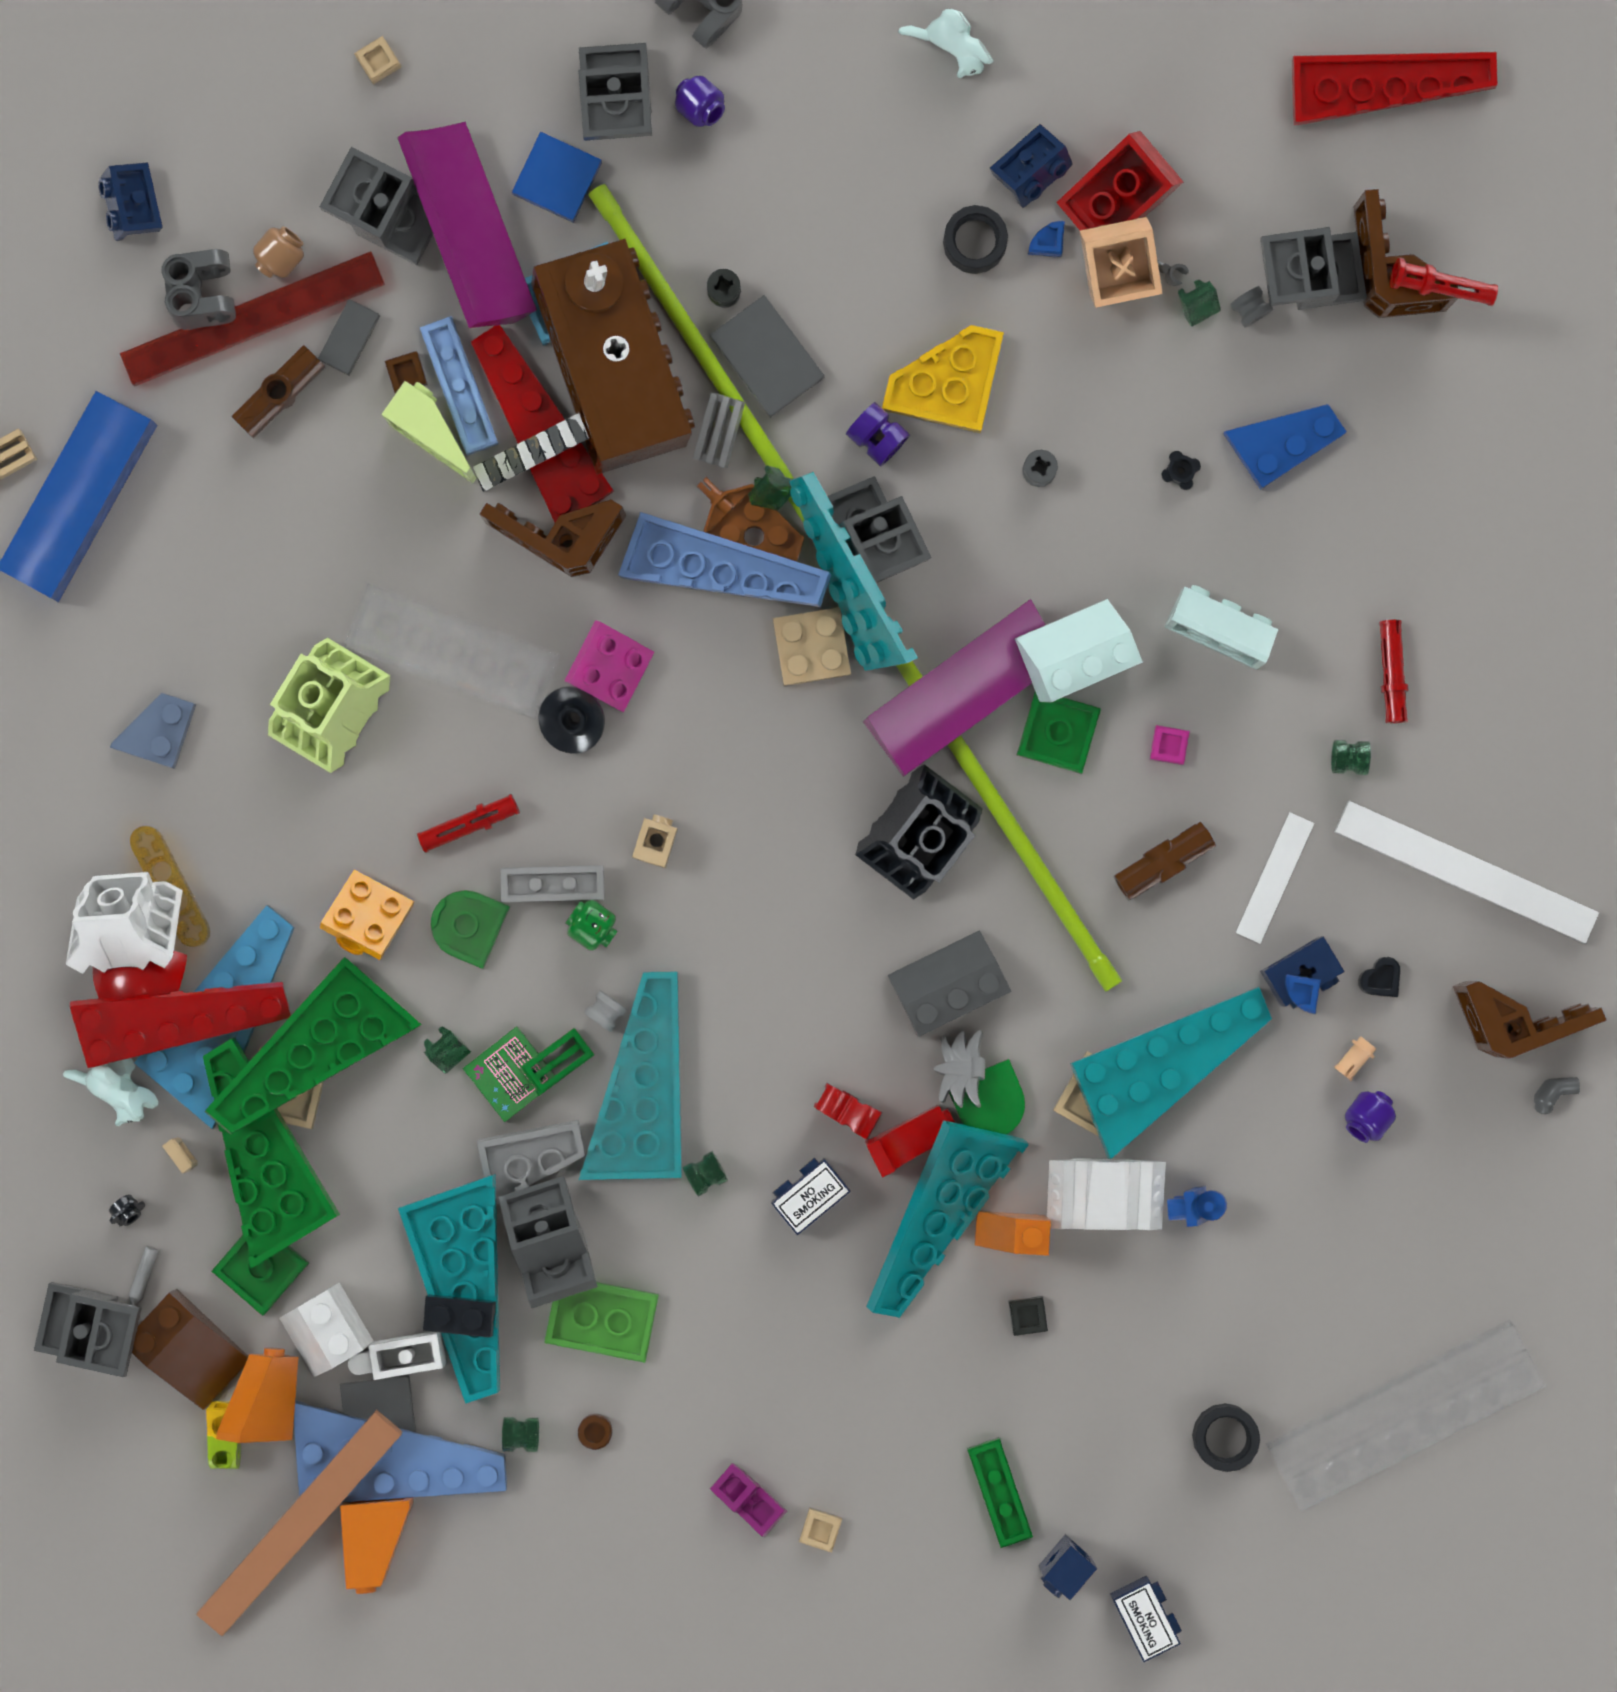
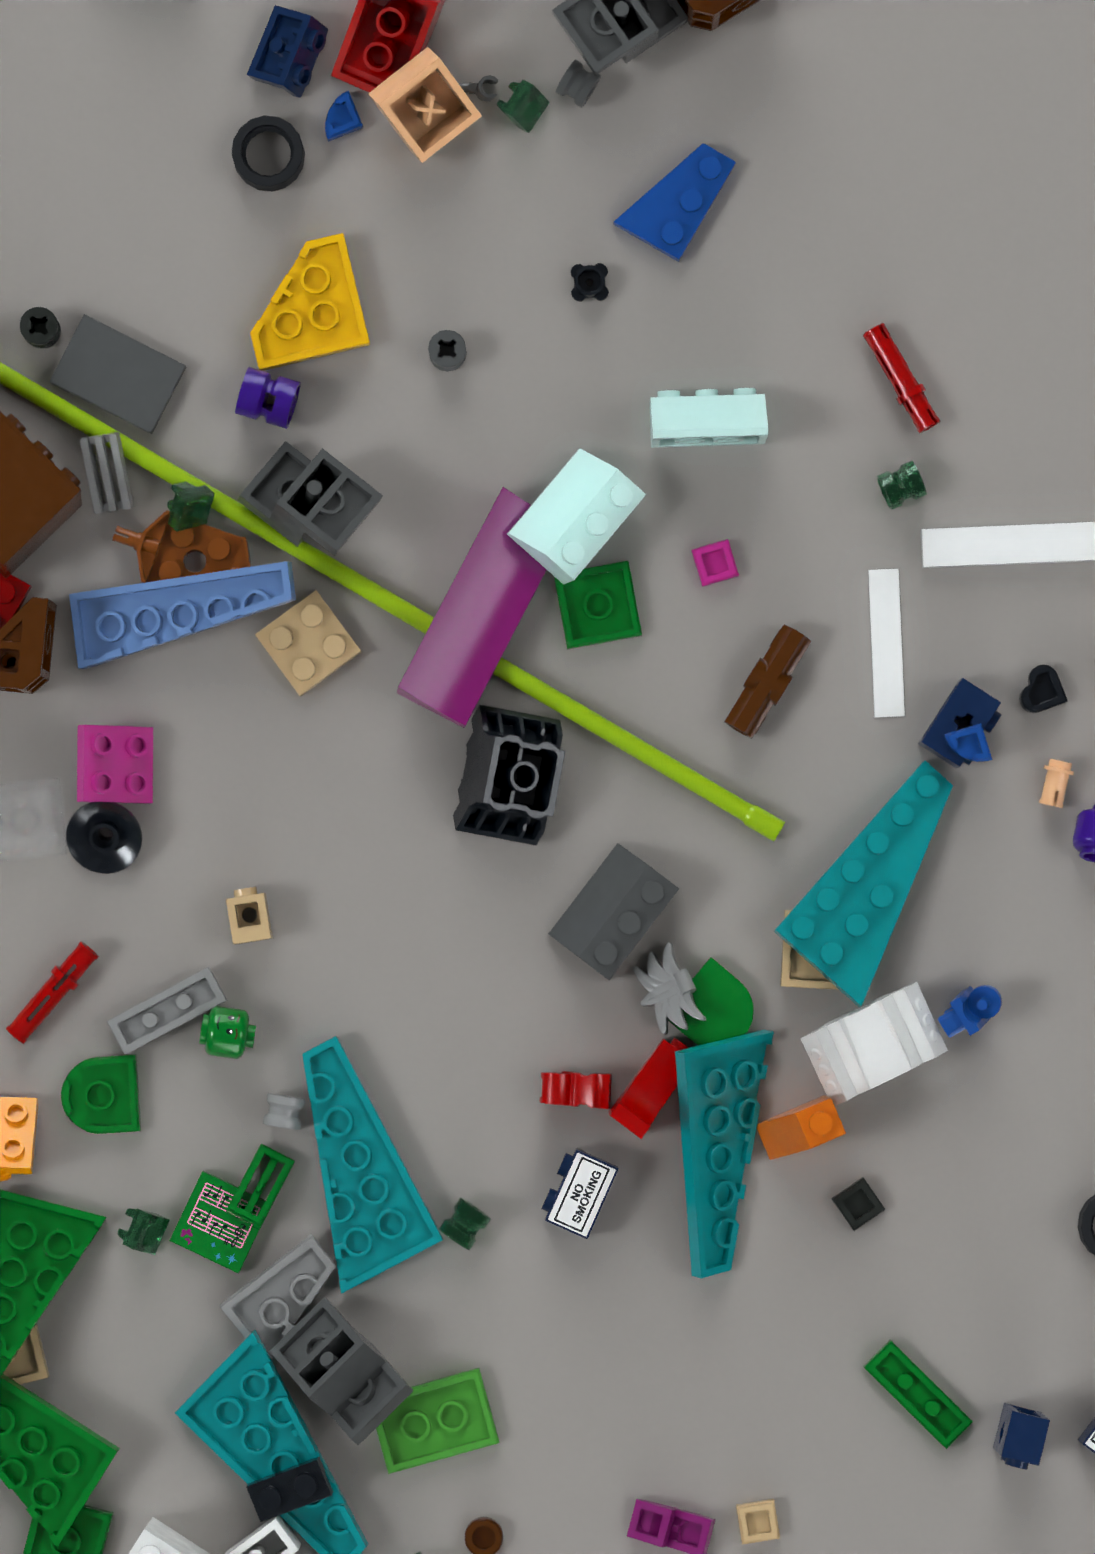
camera: 25 degrees left, 0 degrees up
(851, 582) = (313, 559): teal wing -> none

